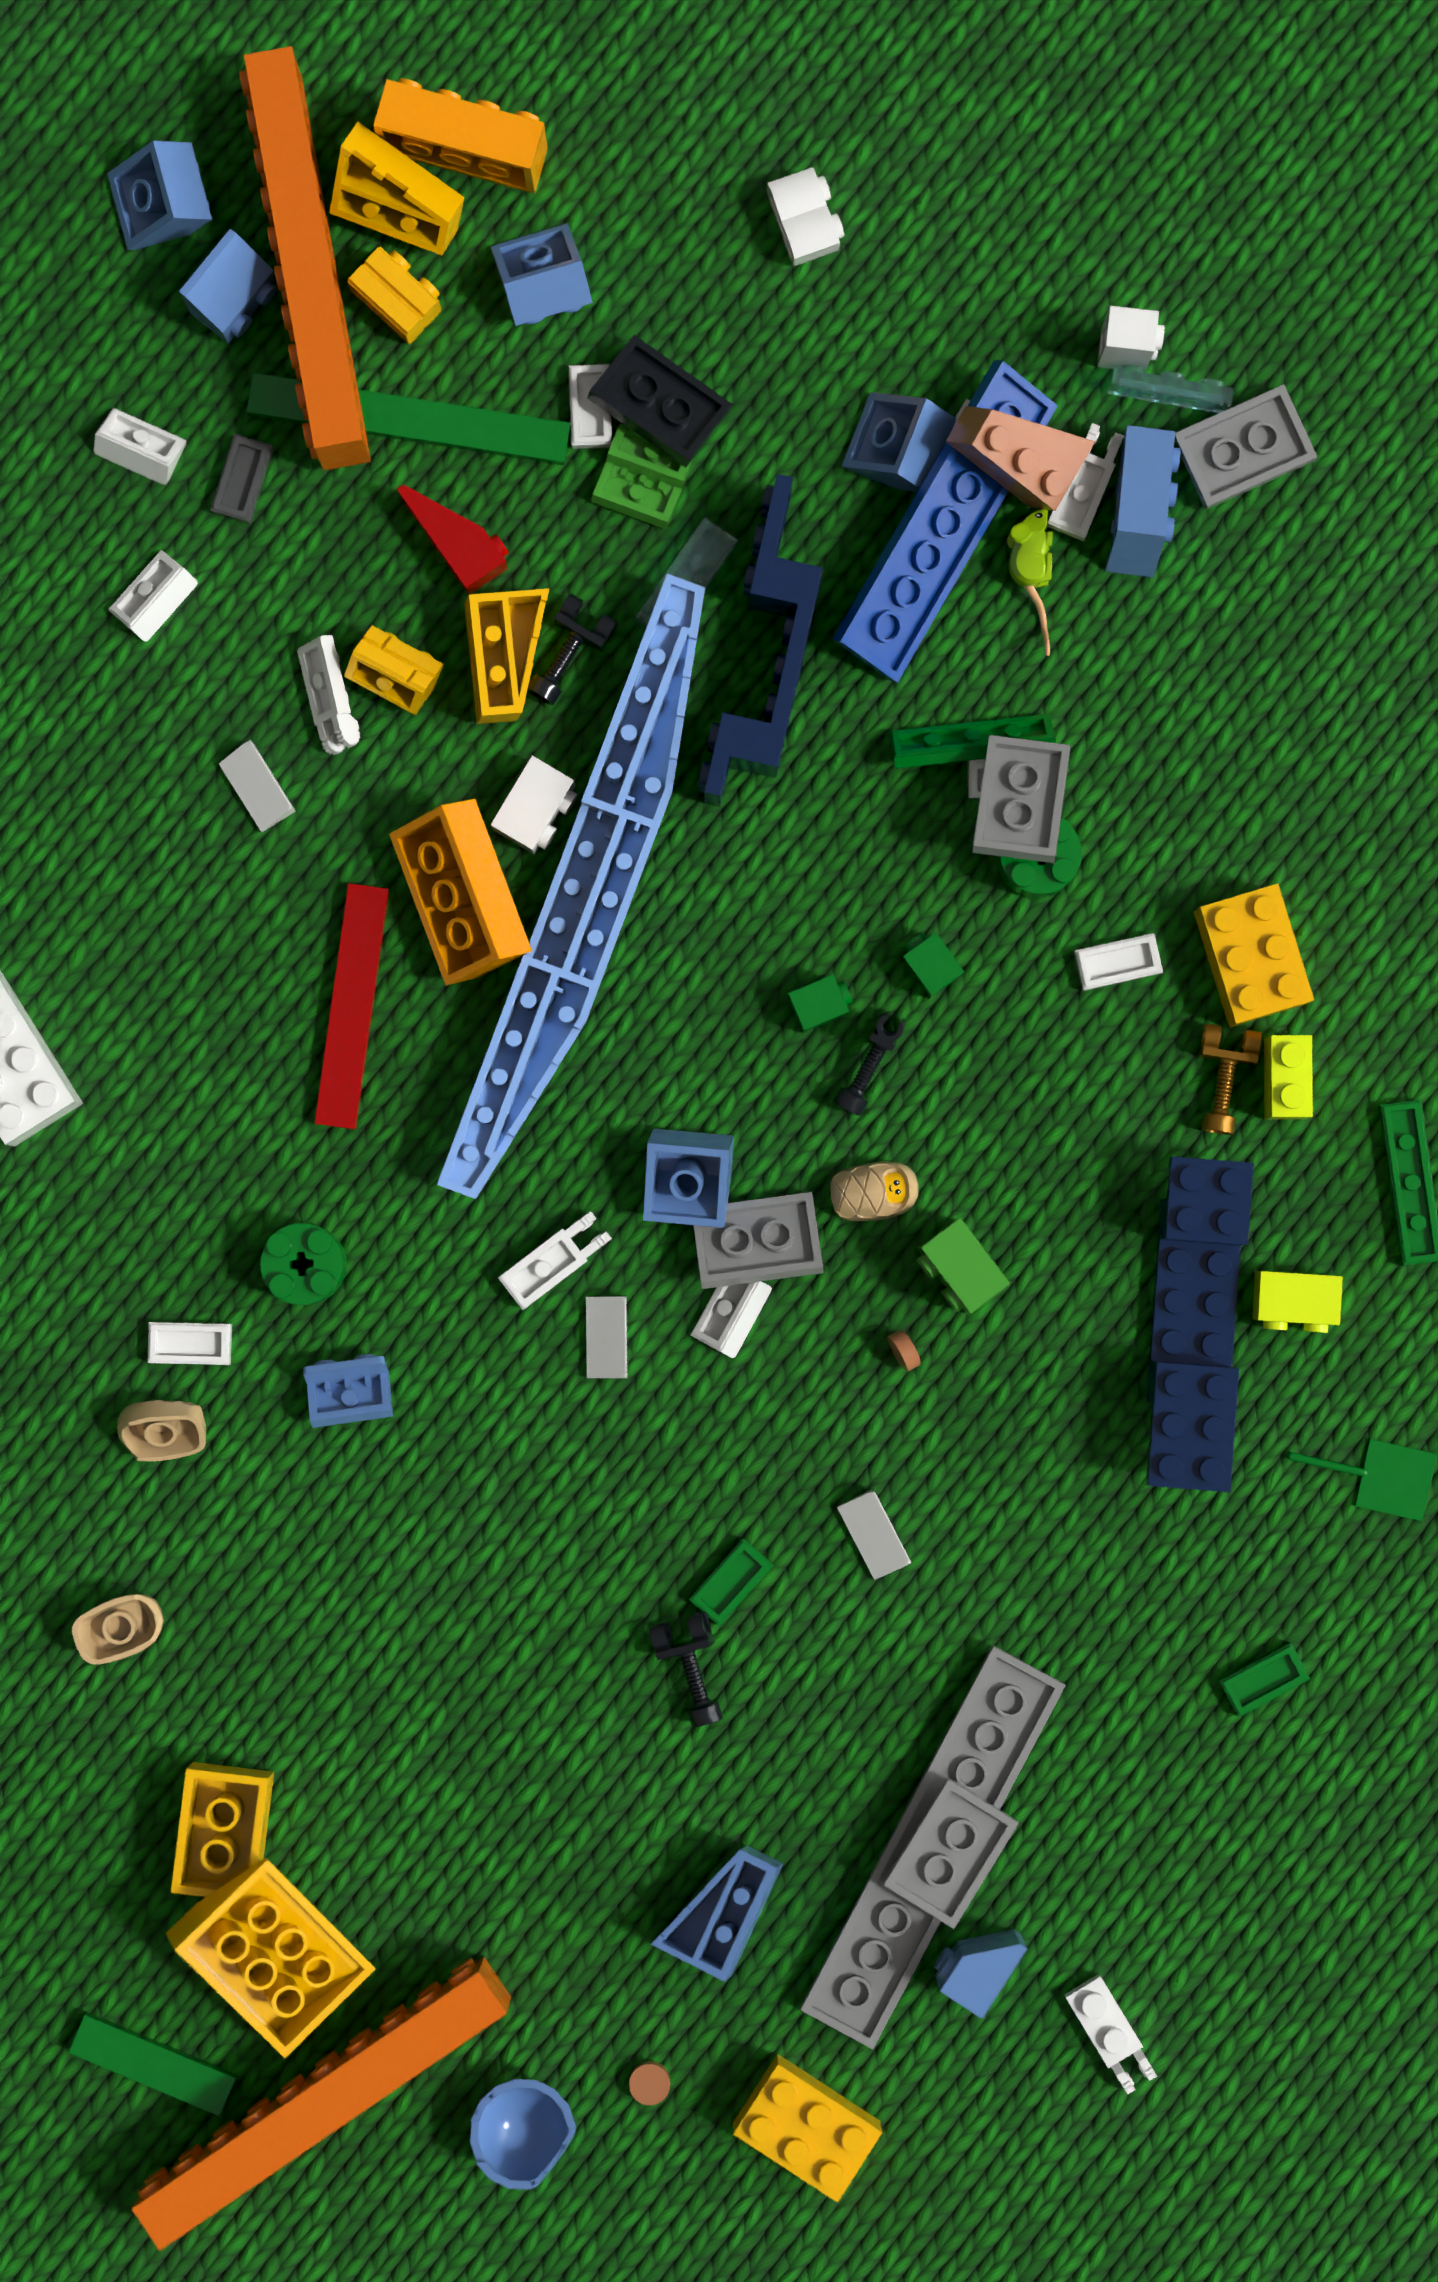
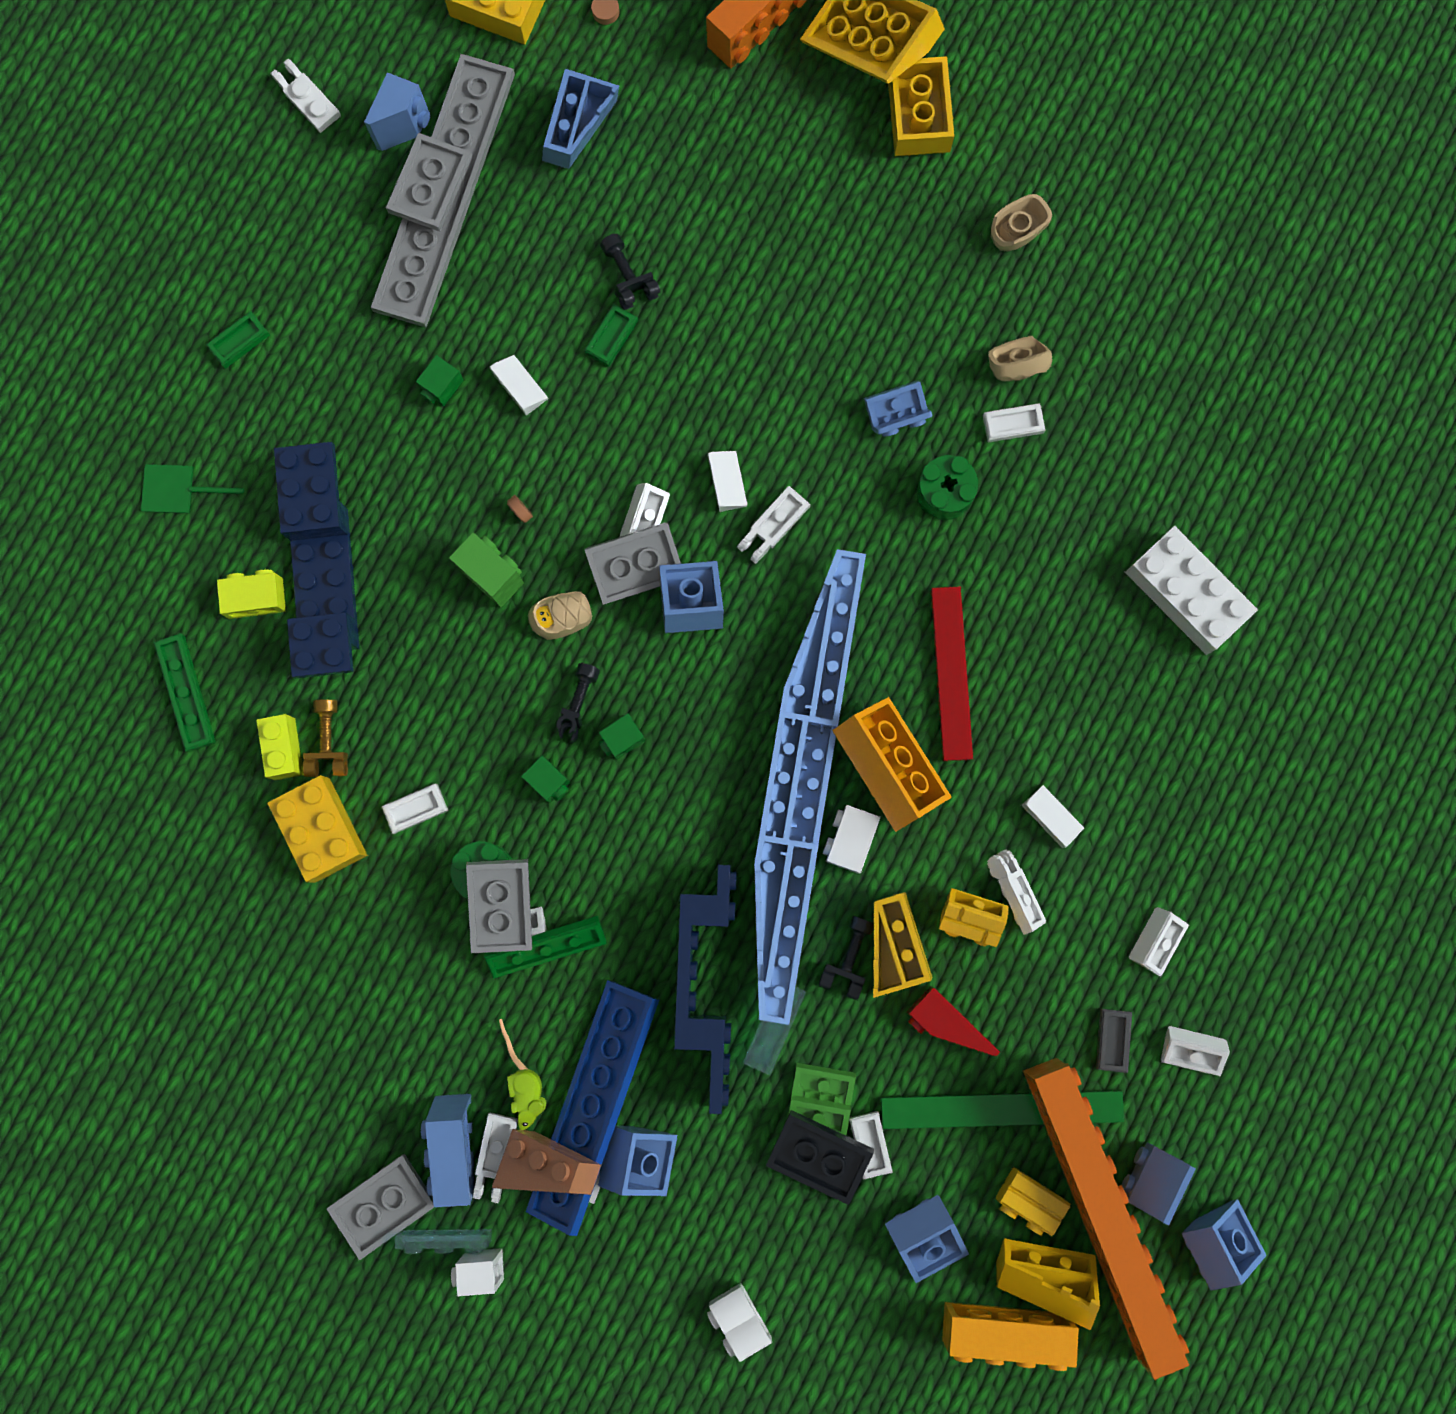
camera: 175 degrees right, 5 degrees down
(986, 1556) = (439, 381): none -> green brick

